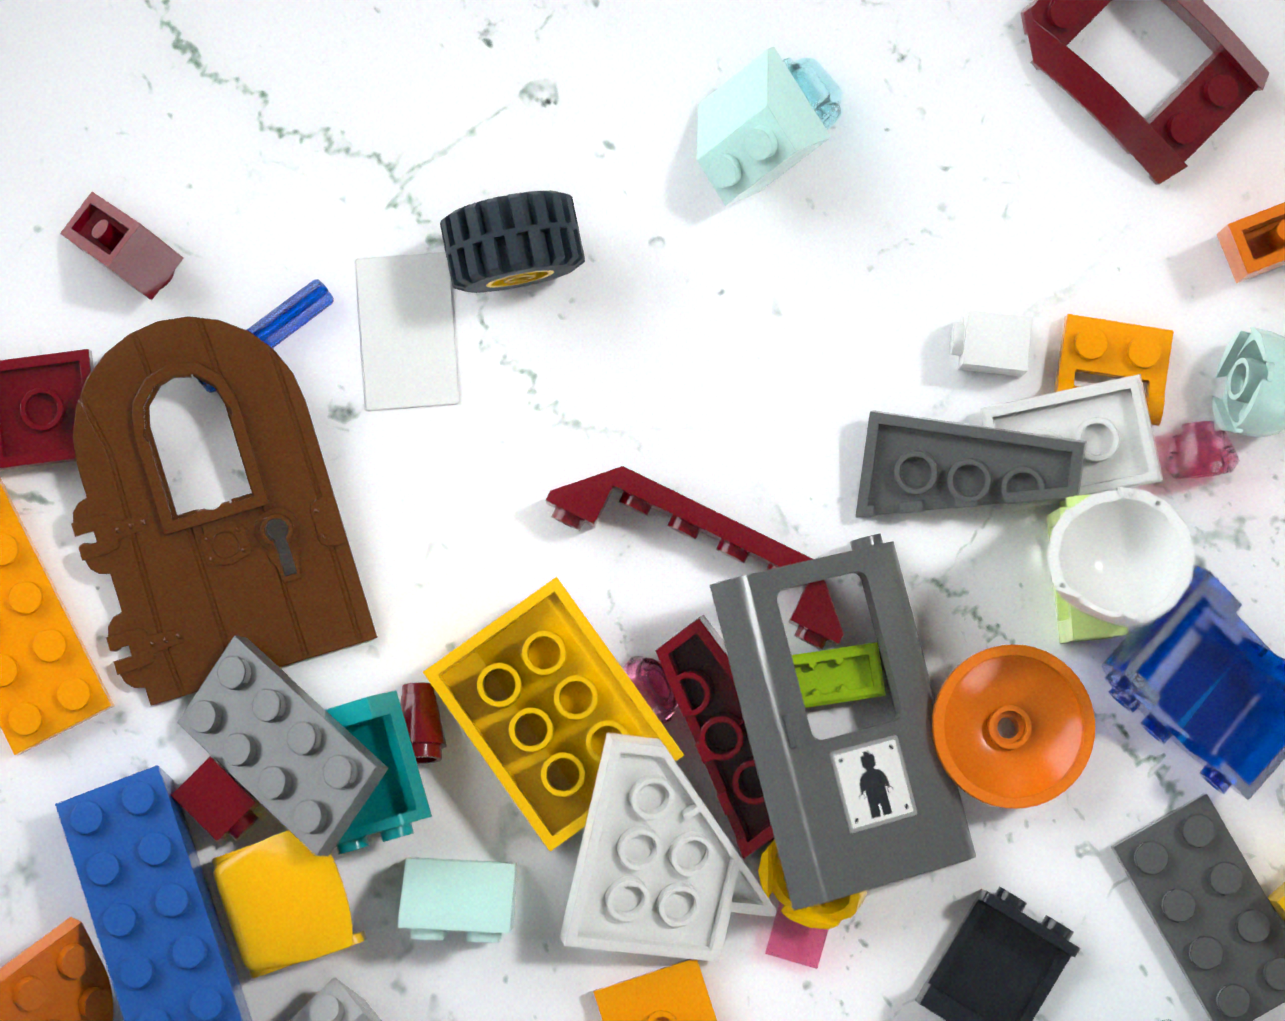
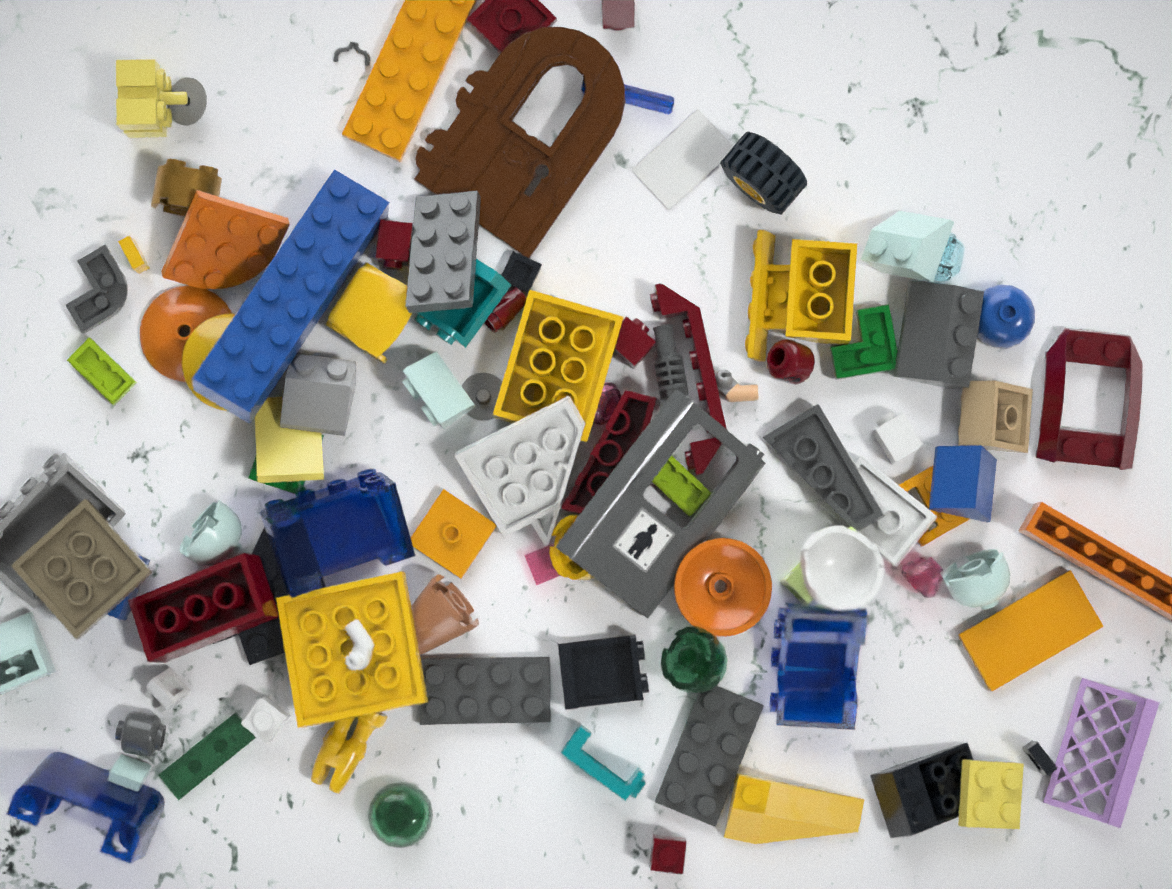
camera: 50 degrees right, 0 degrees up
(387, 662) = (521, 272): none -> black tile
(507, 836) = (483, 391): none -> light grey piece
(597, 587) = (633, 341): none -> dark red brick
(664, 564) = (668, 363): none -> dark grey hinge
(683, 356) = (769, 296): none -> yellow bracket
(727, 290) = (821, 291): none -> yellow slope
(762, 508) = (732, 390): none -> arm
(786, 403) = (790, 361): none -> dark red head
(858, 280) = (876, 350): none -> green plate
(903, 182) = (938, 334): none -> dark grey slope
(942, 81) = (1005, 317): none -> blue cylinder
(1065, 195) = (995, 416): none -> tan slope
(1081, 840) = (694, 660): none -> clear green cylinder
(1119, 304) = (963, 482): none -> blue slope

